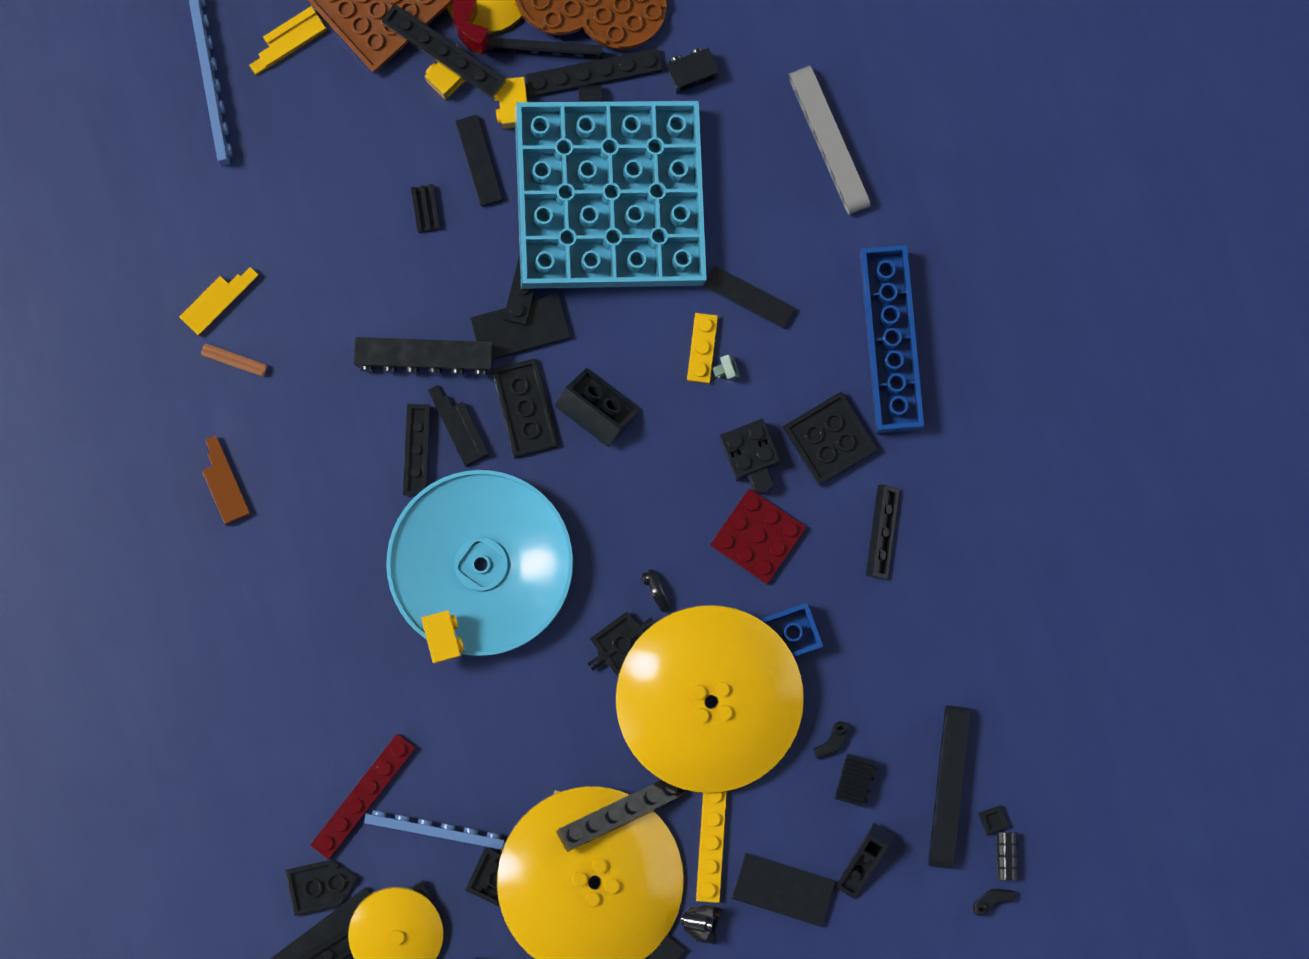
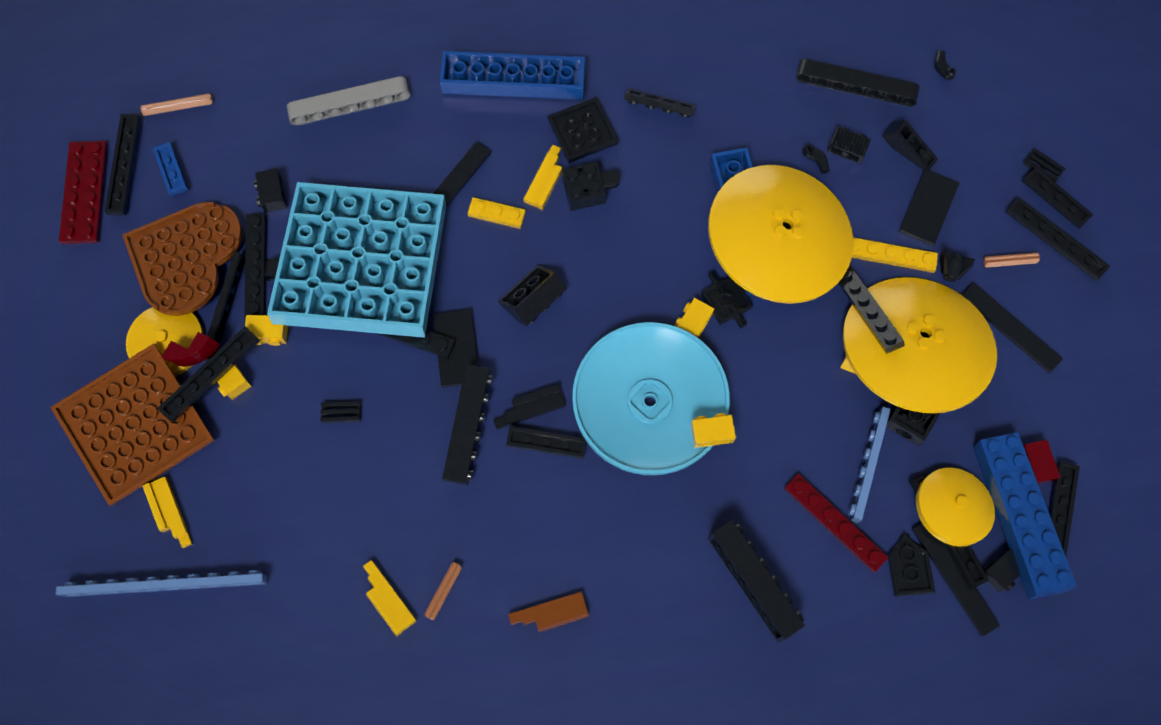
camera: 85 degrees left, 10 degrees down
(279, 705) = (756, 581): none -> black brick
(479, 160) = (308, 364): black tile -> none
(524, 408) = (523, 352): black tile -> none
(588, 605) = (695, 318): none -> yellow brick
(657, 589) = (684, 267): black arm -> none
(727, 368) = (516, 193): sand green tile -> none
(755, 401) = (544, 180): none -> yellow piece
(757, 536) = (651, 191): dark red plate -> none
(993, 820) = (883, 59): black tile -> none
(1006, 856) = (911, 51): black axle -> none

